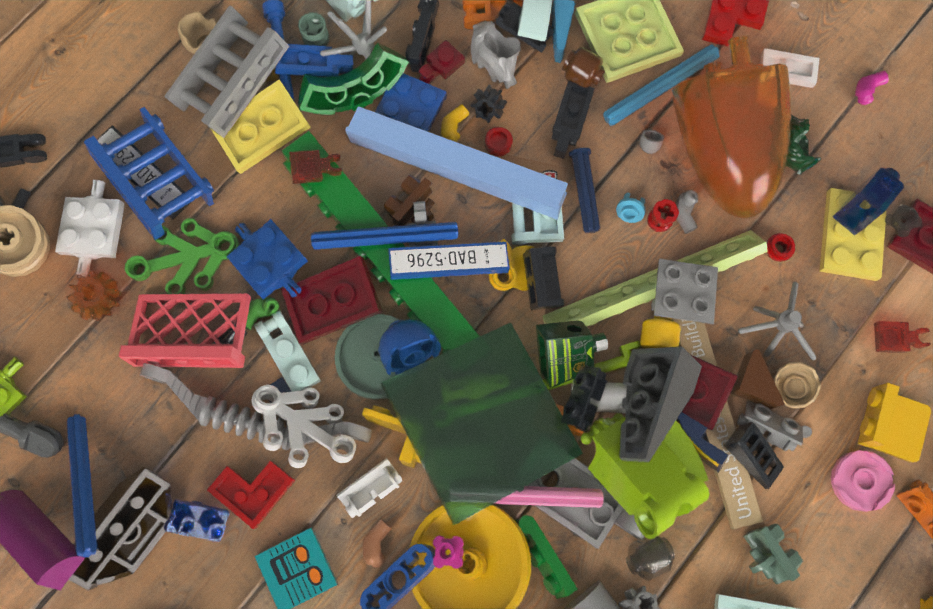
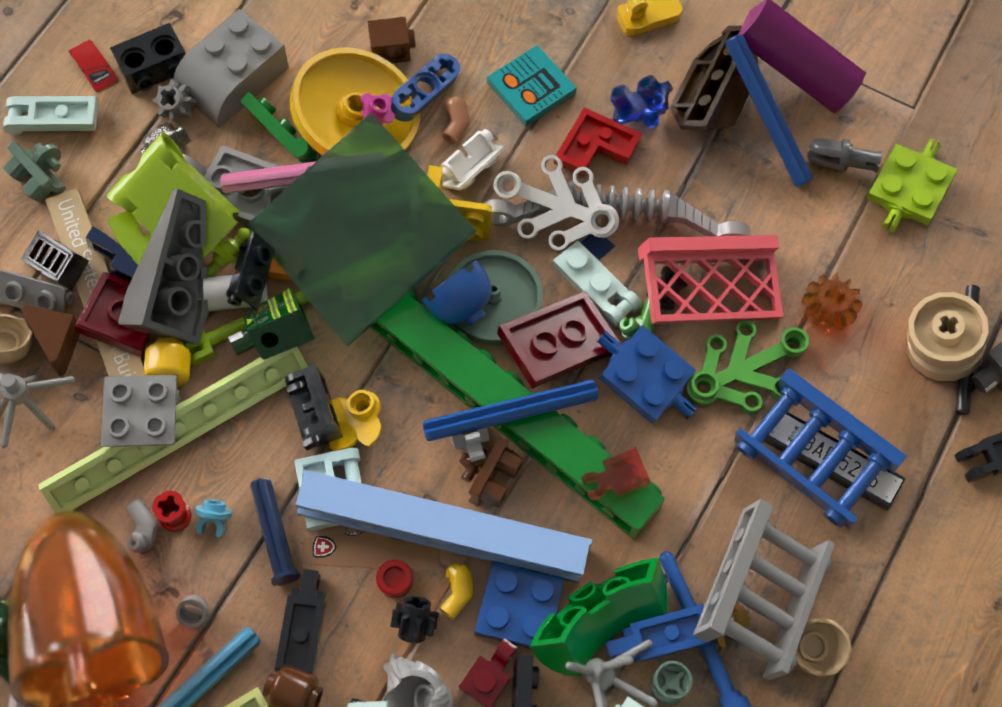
camera: 170 degrees right, 10 degrees down
(90, 227) = (868, 380): white plate -> none
(263, 127) = (696, 535): light yellow plate -> none
(448, 260) = (429, 397): white tile -> none
(786, 242) = (14, 495): red plate -> none

